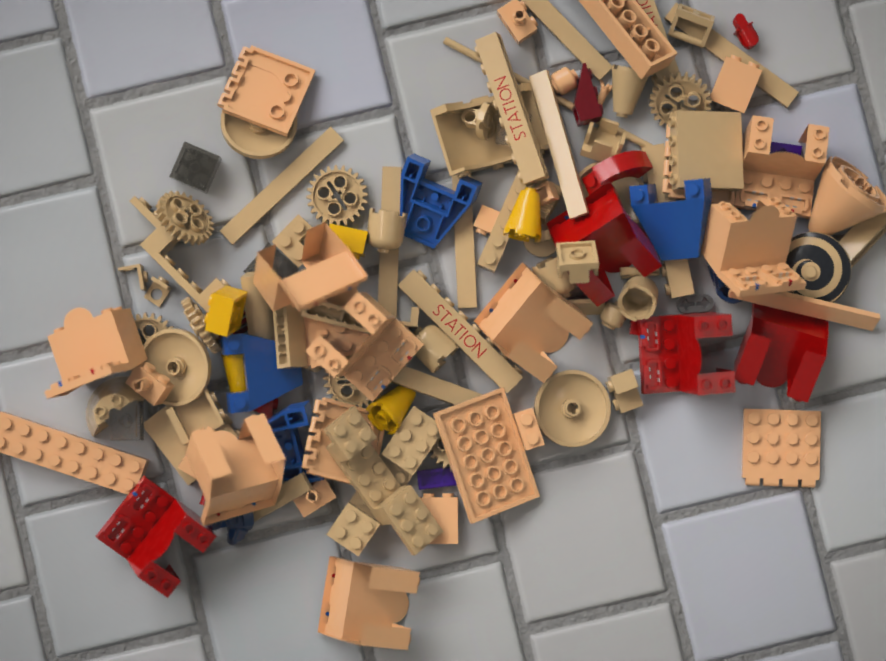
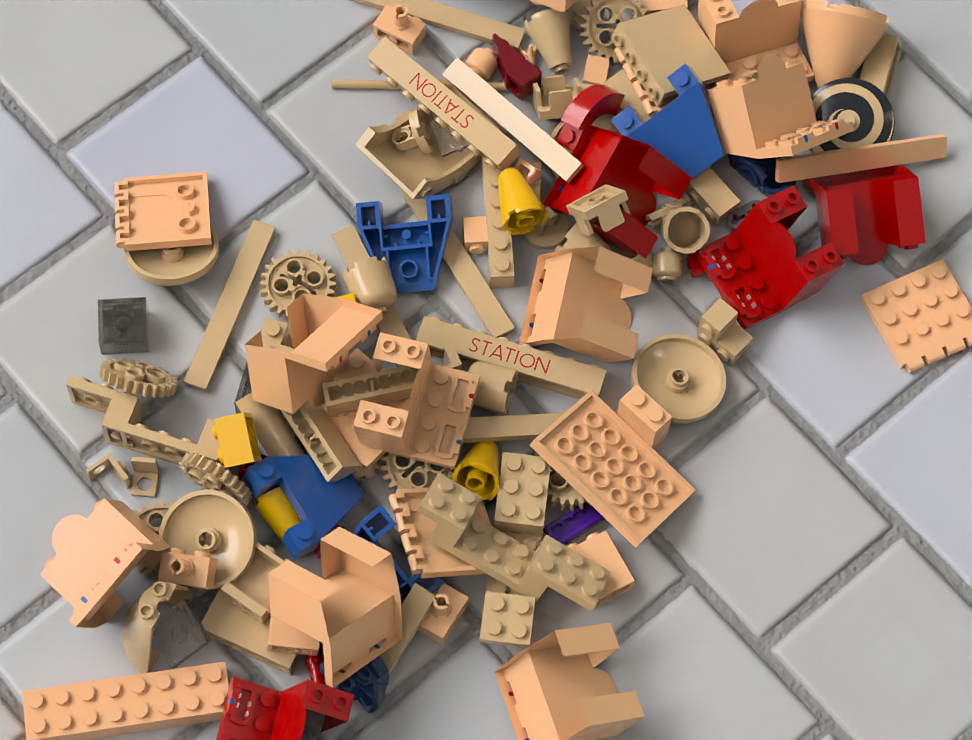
camera: 30 degrees left, 20 degrees down
(648, 128) = (596, 69): none -> light nougat slope

